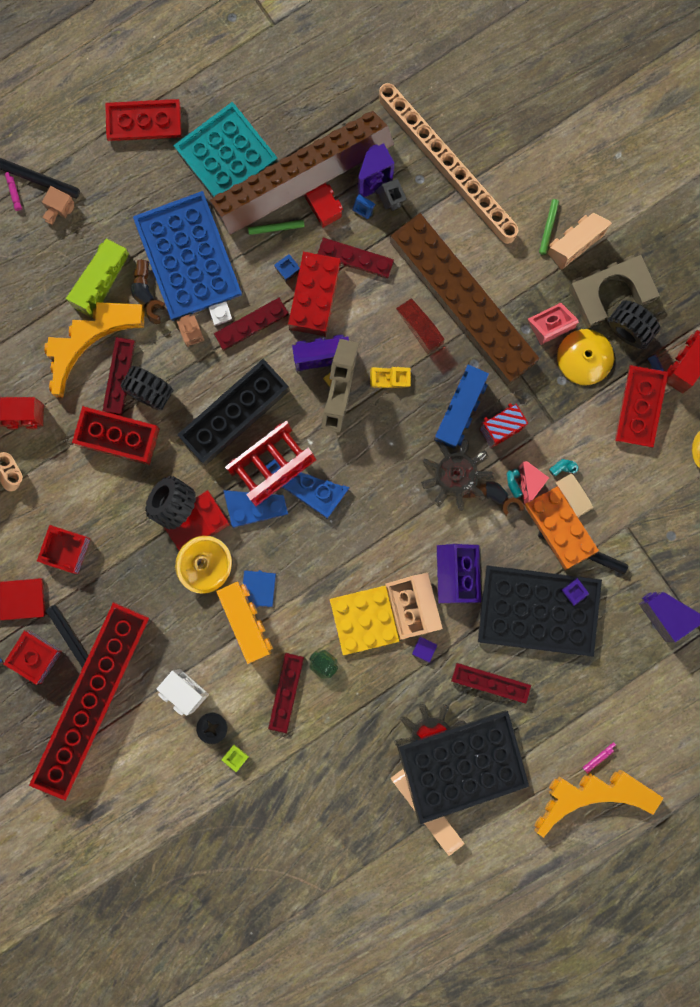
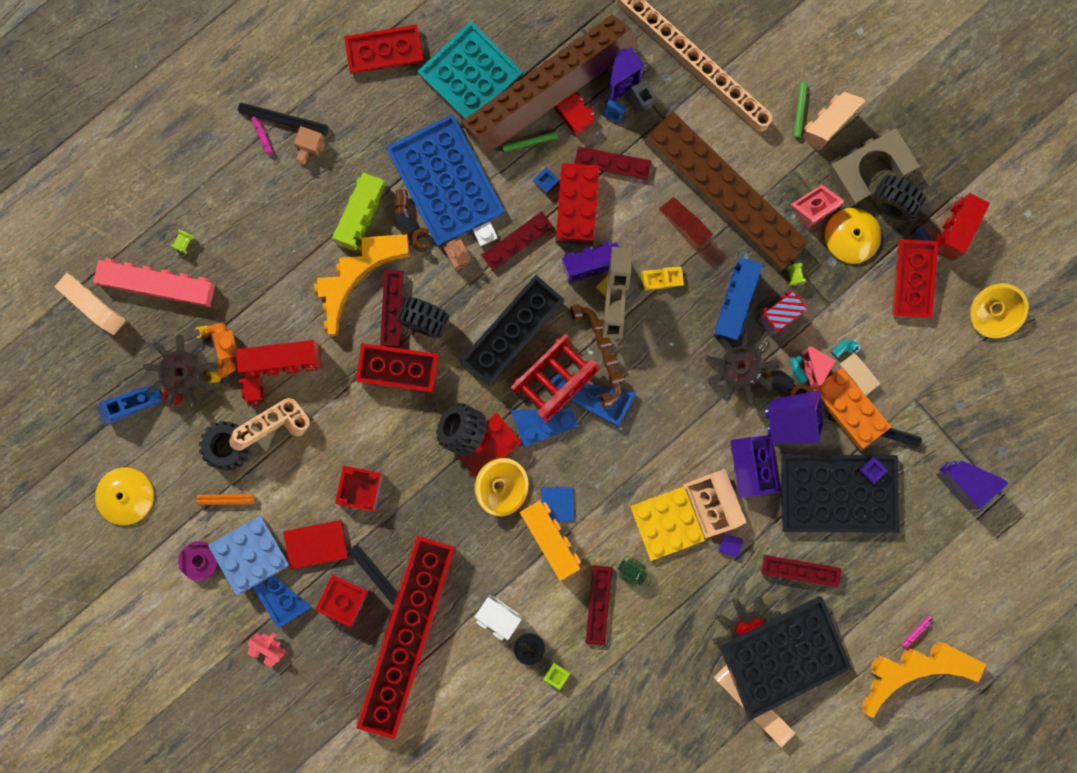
camera: 10 degrees left, 0 degrees up
(326, 452) = (608, 360): none -> reddish brown bar
(504, 531) = (796, 418): none -> dark purple slope
(523, 388) = (796, 274): none -> lime bush

